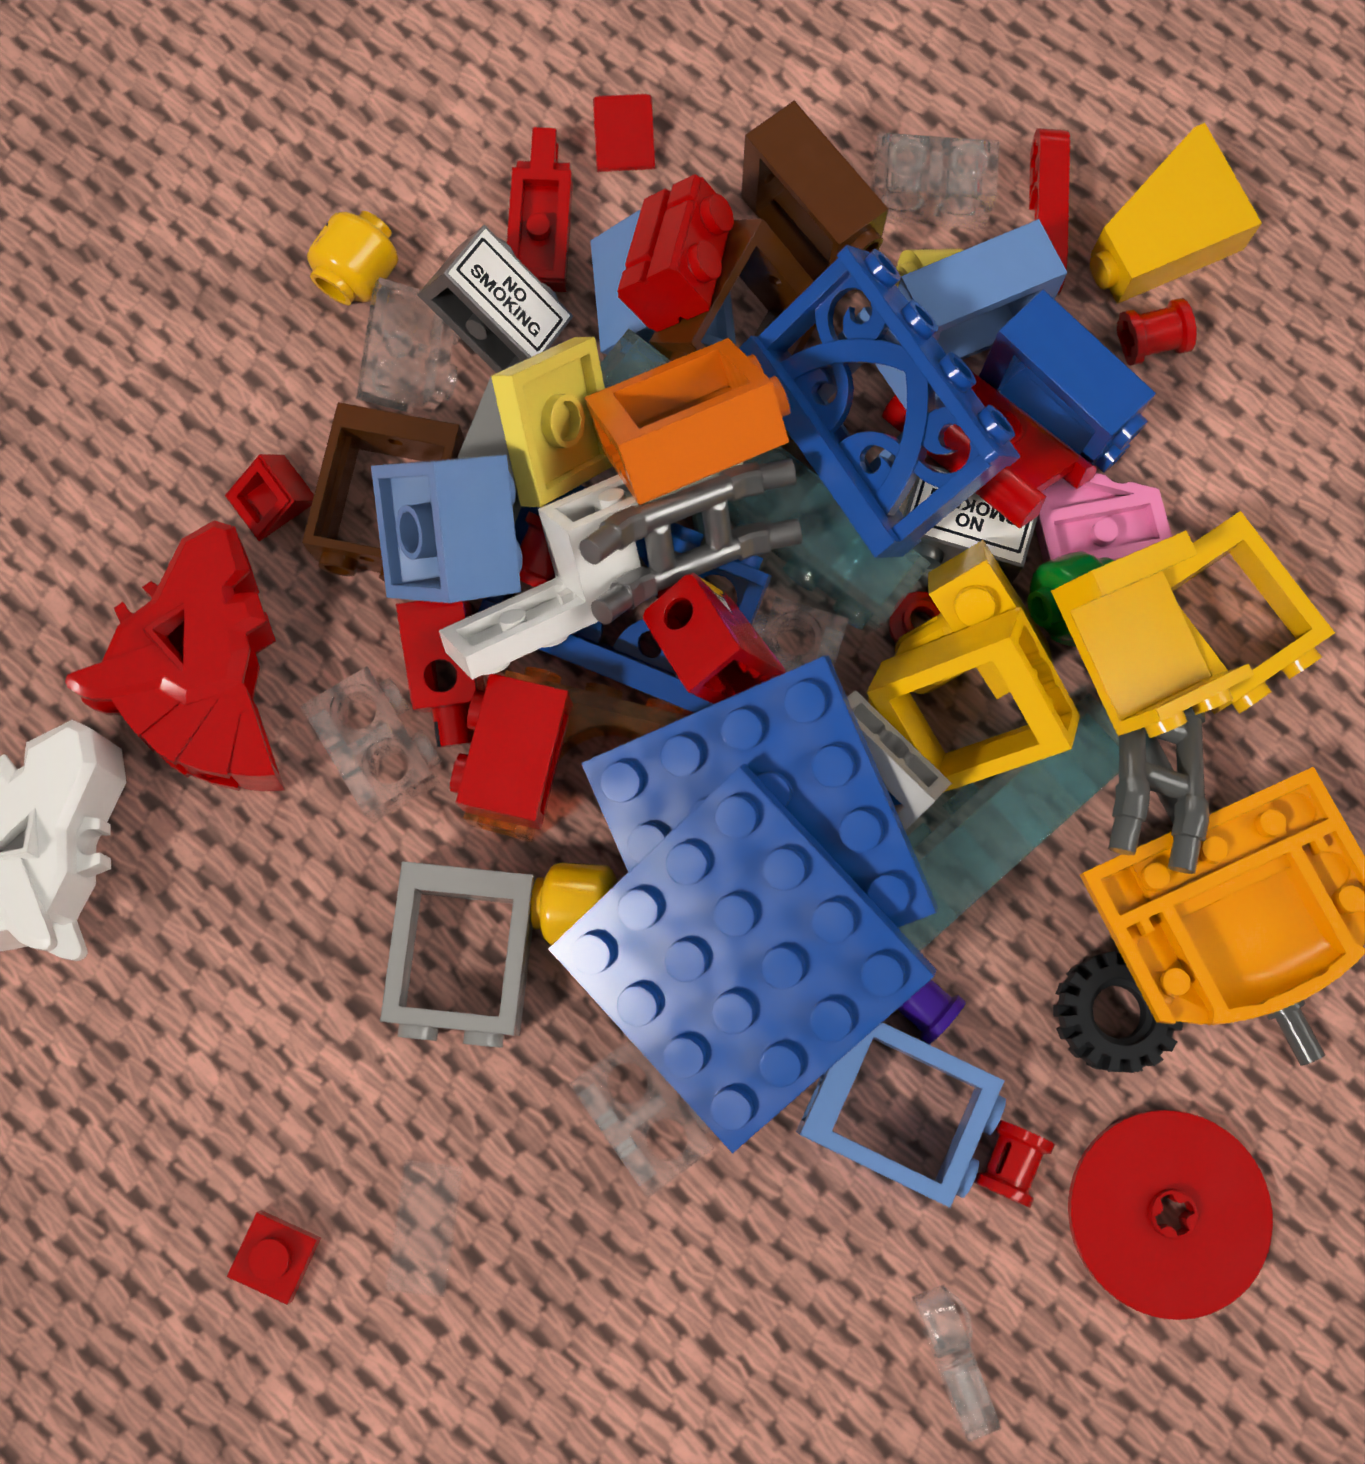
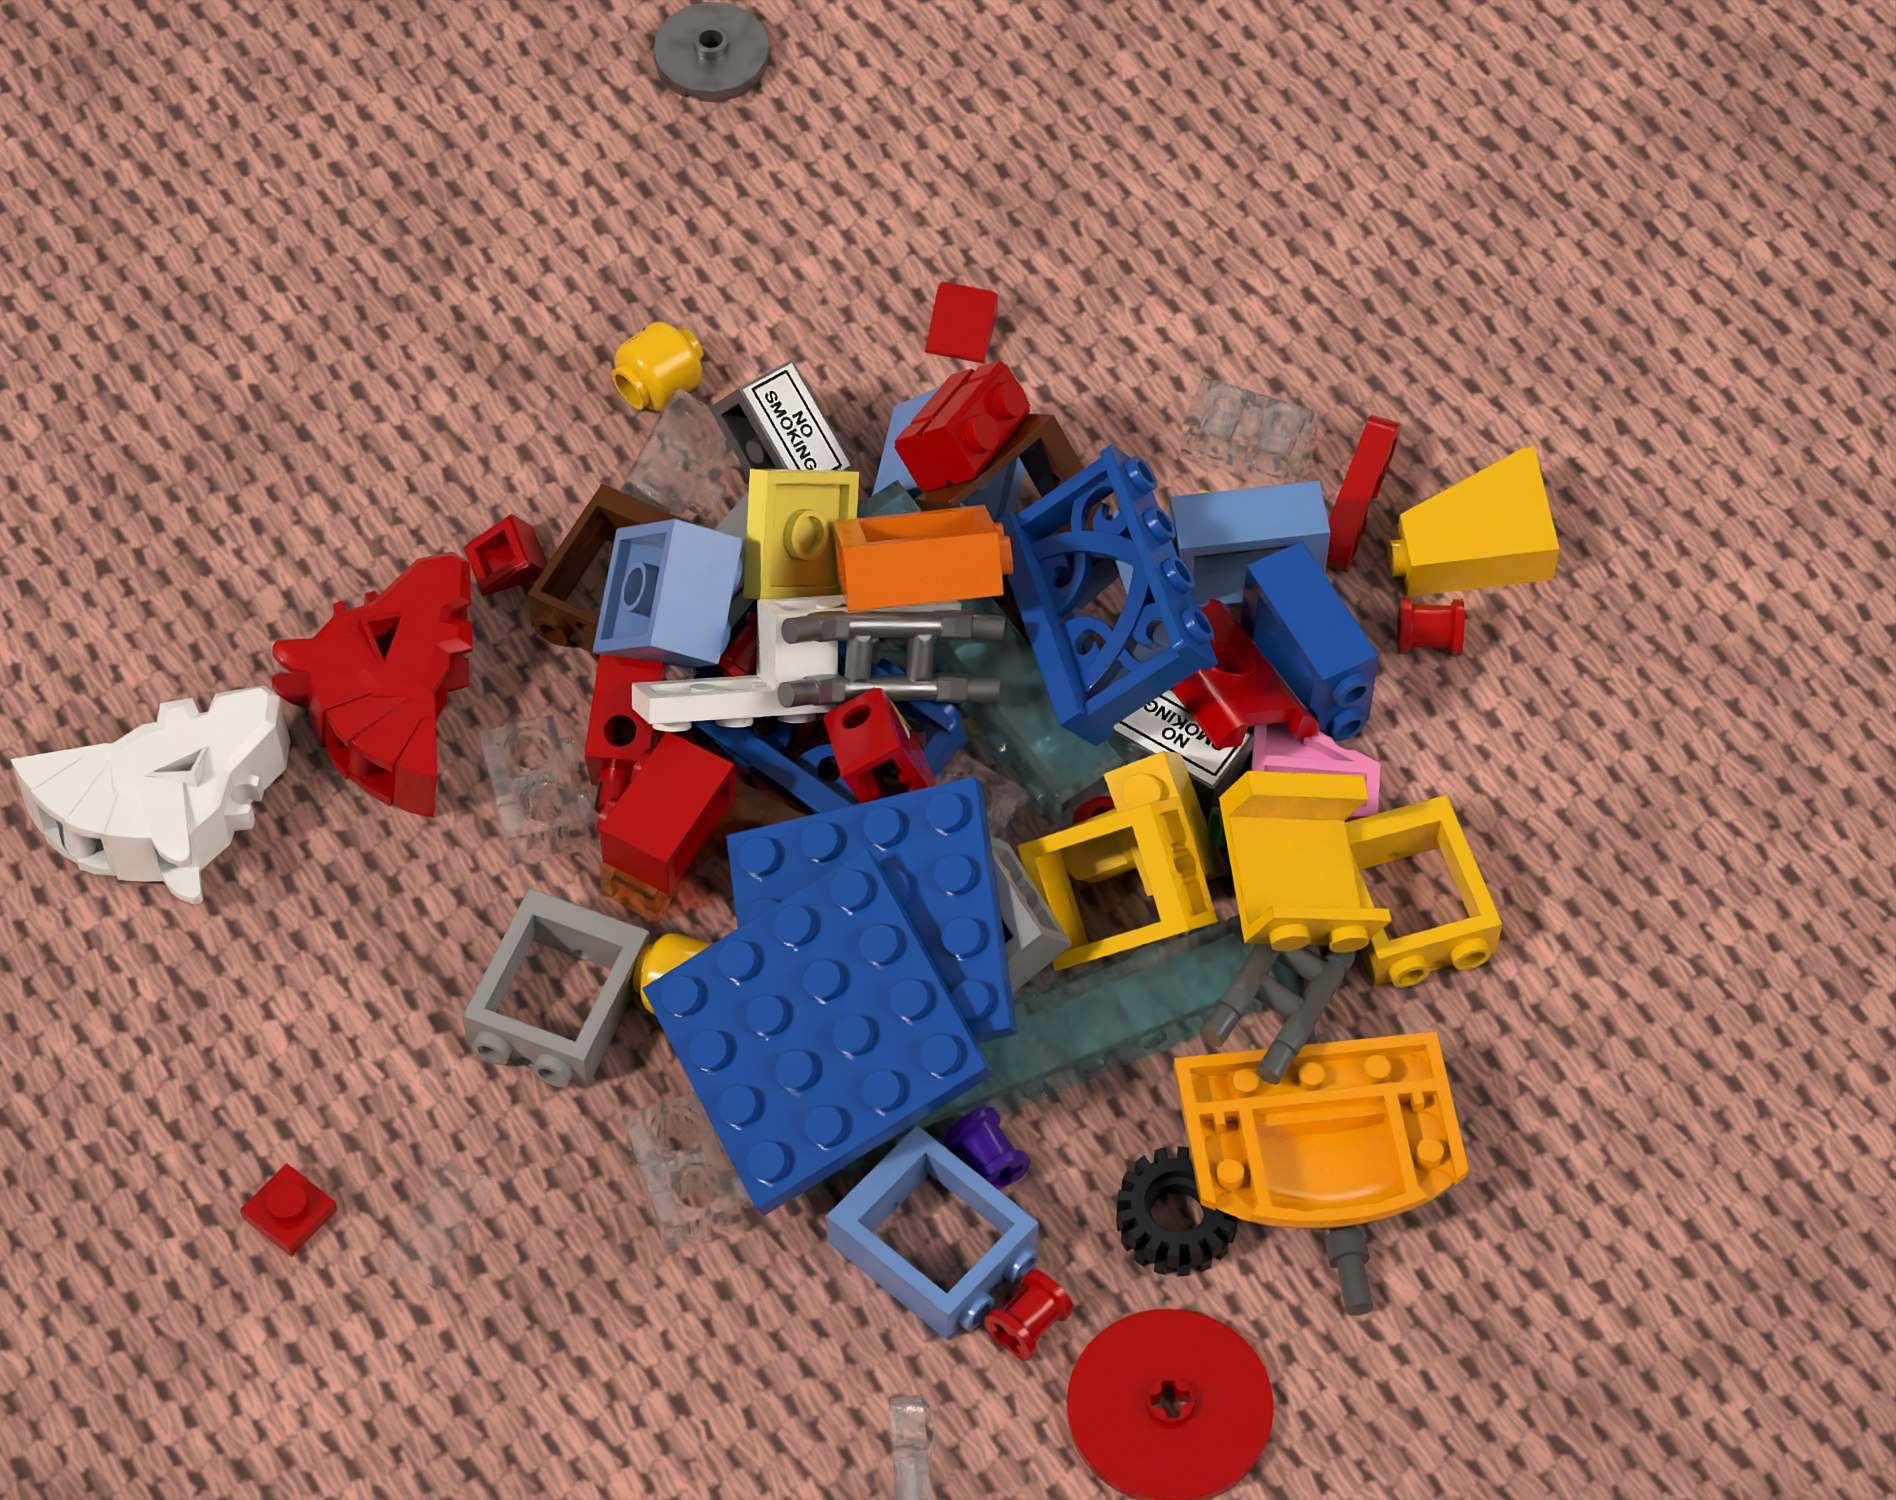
camera: 15 degrees right, 20 degrees down
(542, 211) = (857, 371): red hinge -> none
(808, 191) = (1114, 404): reddish brown window -> none

